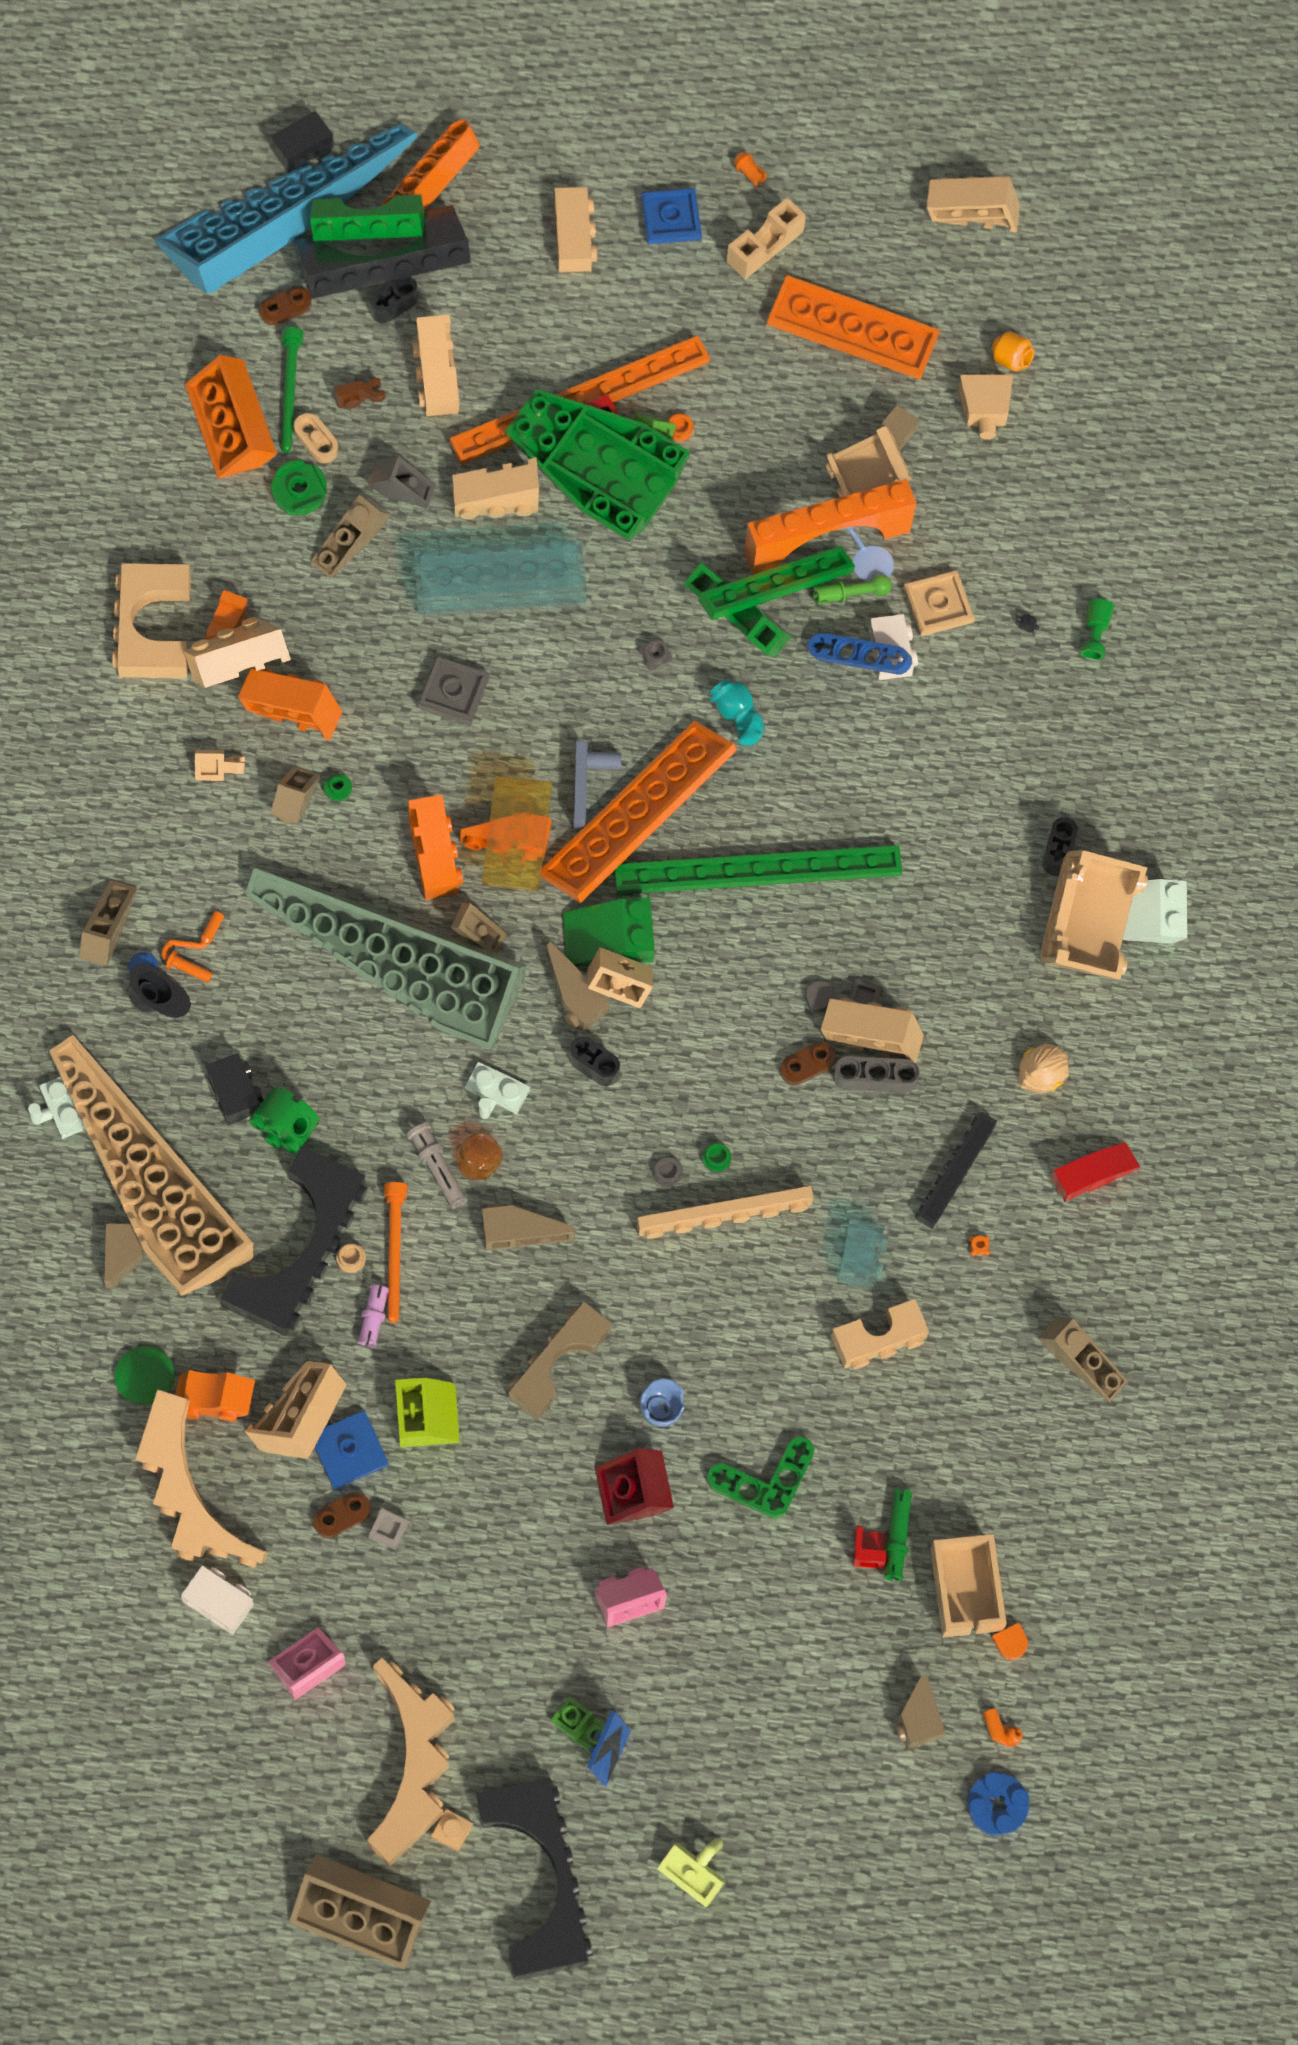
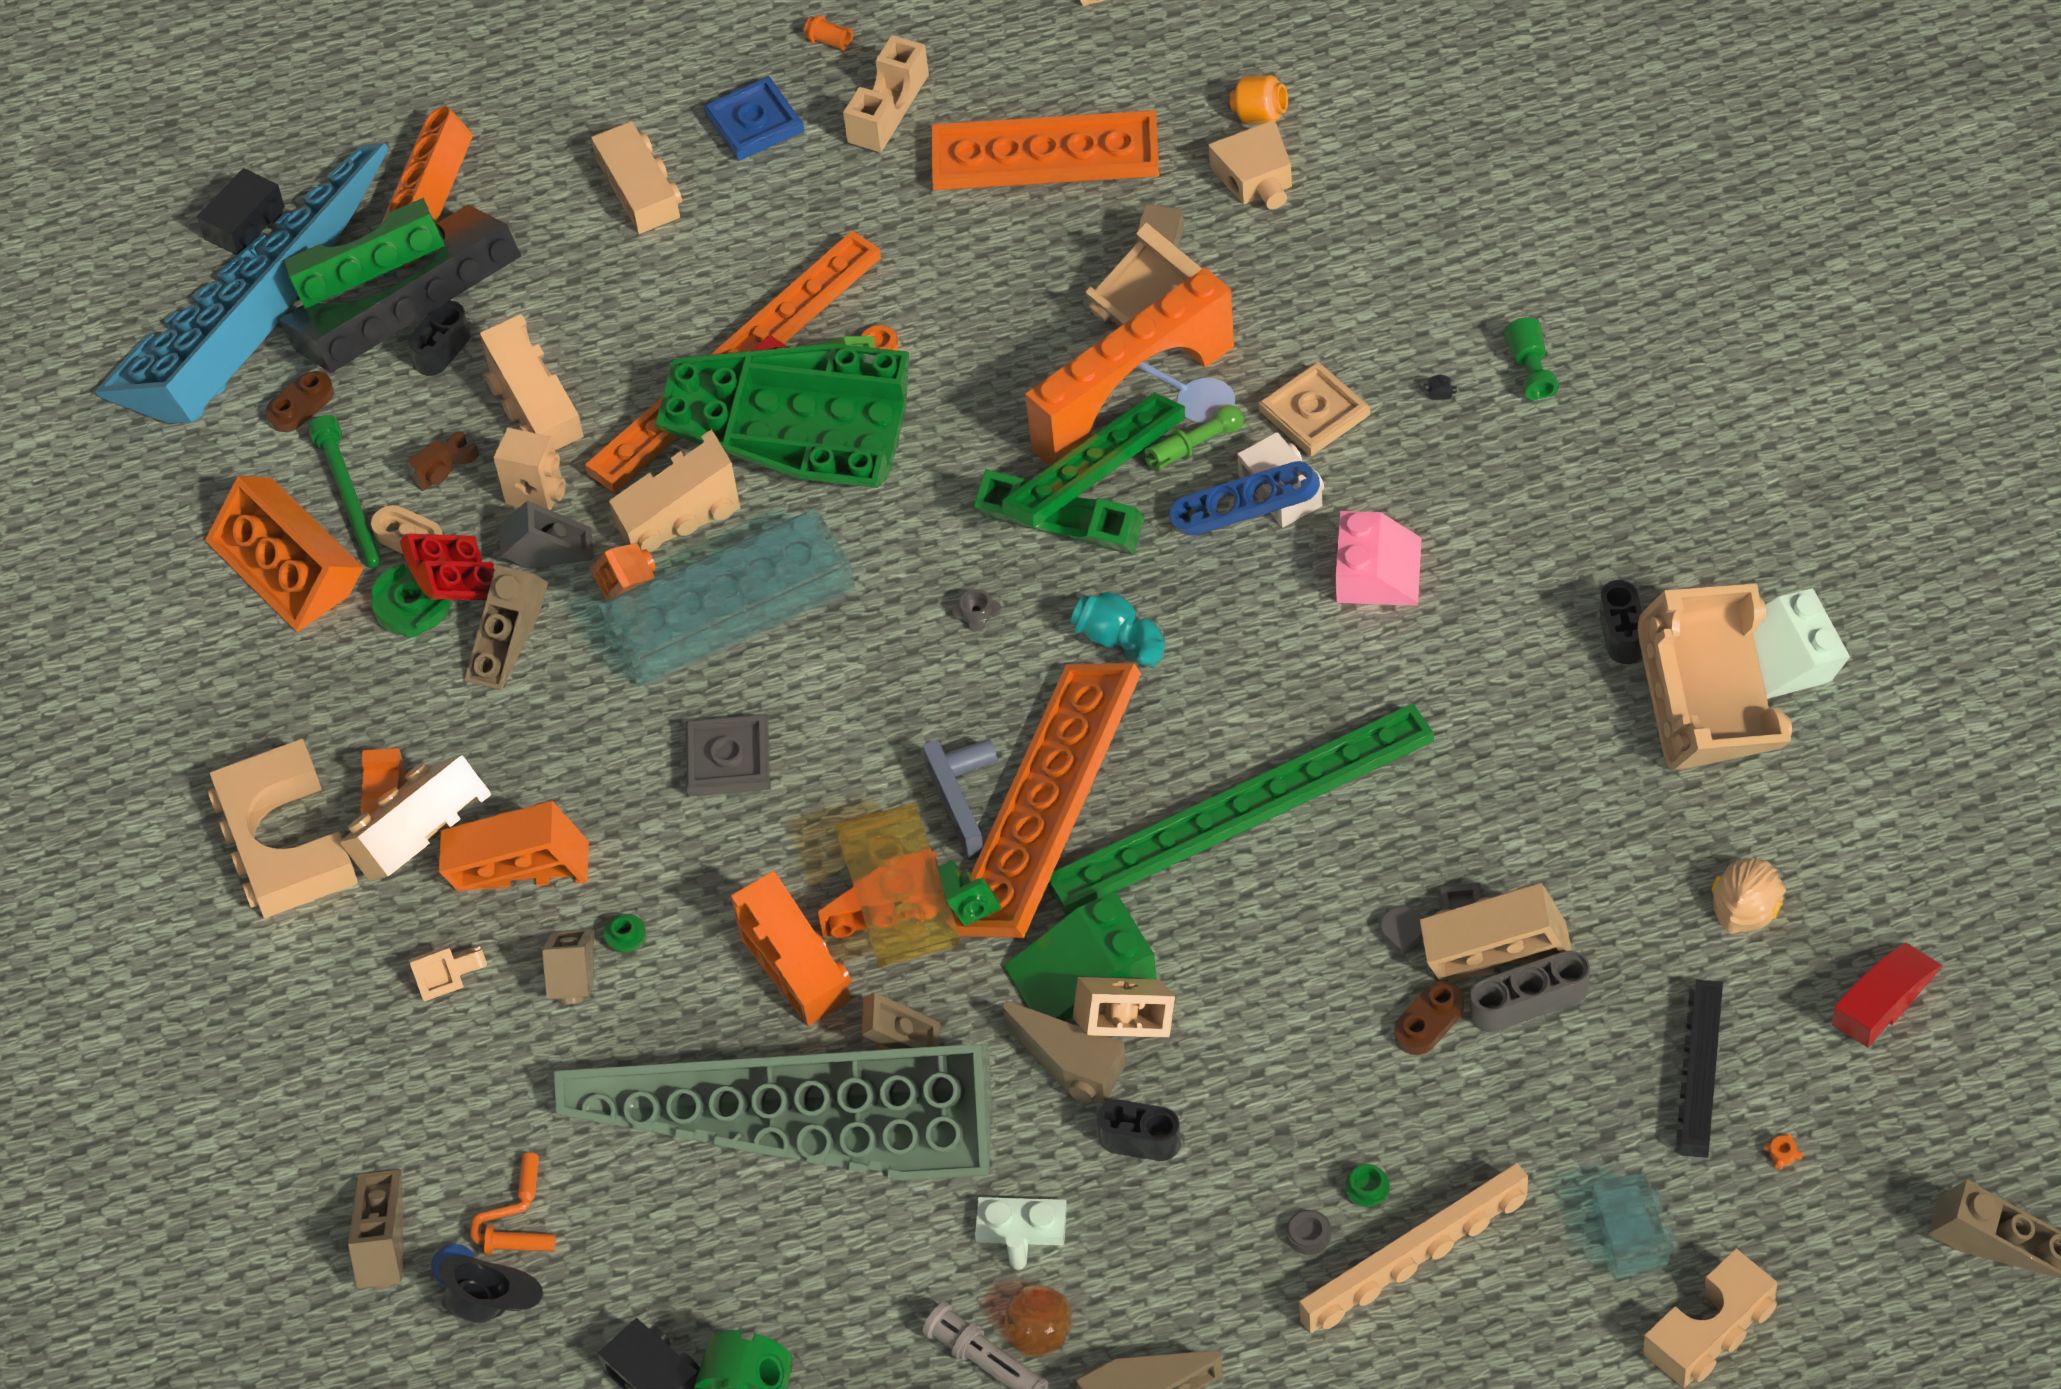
camera: 10 degrees left, 15 degrees down
(331, 478) = (448, 566): none -> red slope
(410, 430) = (529, 469): none -> tan brick
(441, 532) = (623, 570): none -> orange slope
(555, 858) = (967, 897): none -> green bracket
(925, 733) = (1376, 560): none -> bright pink slope

